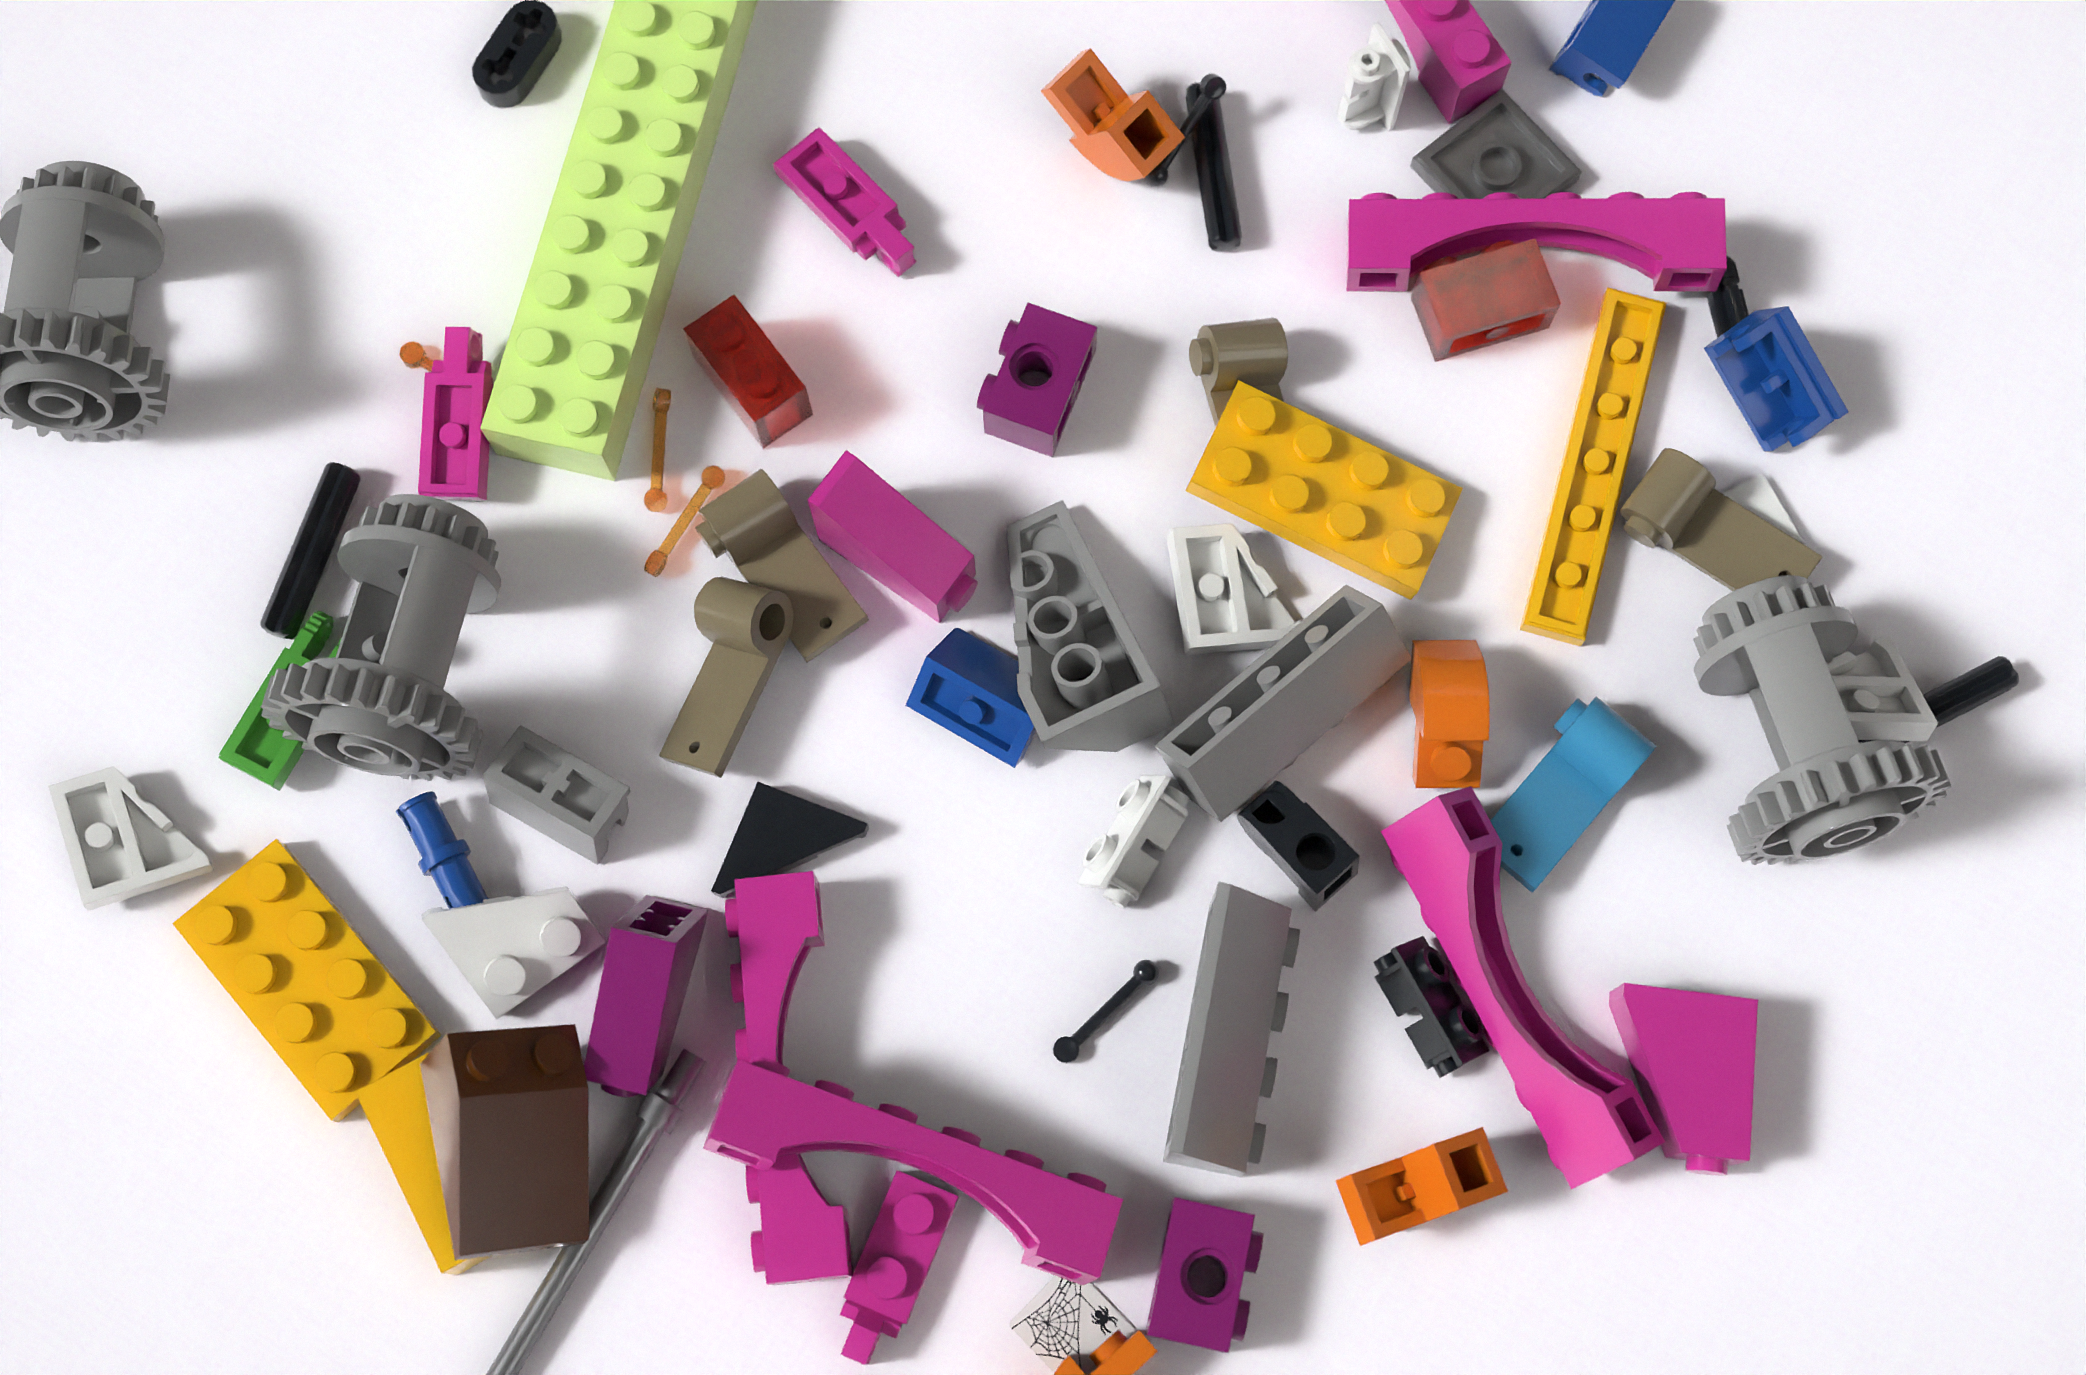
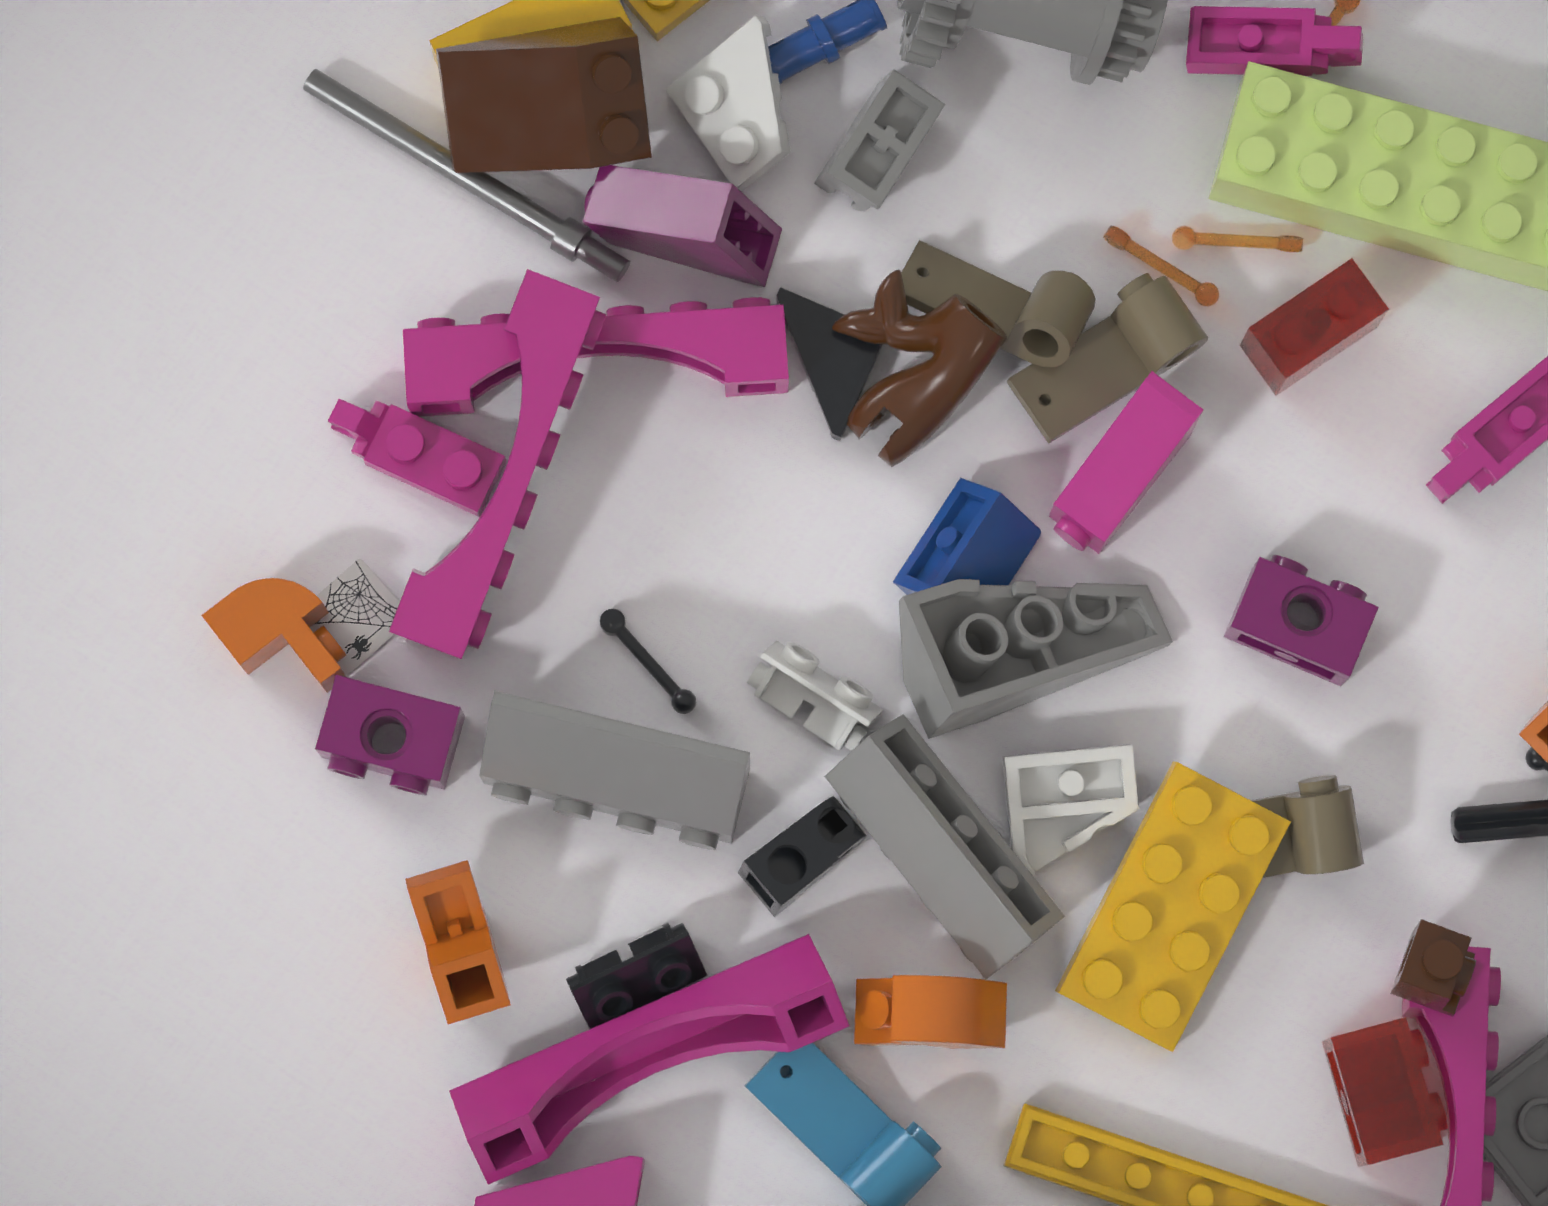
camera: 90 degrees right, 5 degrees up
(823, 732) = (931, 391): none -> reddish brown piece
(1381, 228) = (1435, 968): none -> reddish brown brick

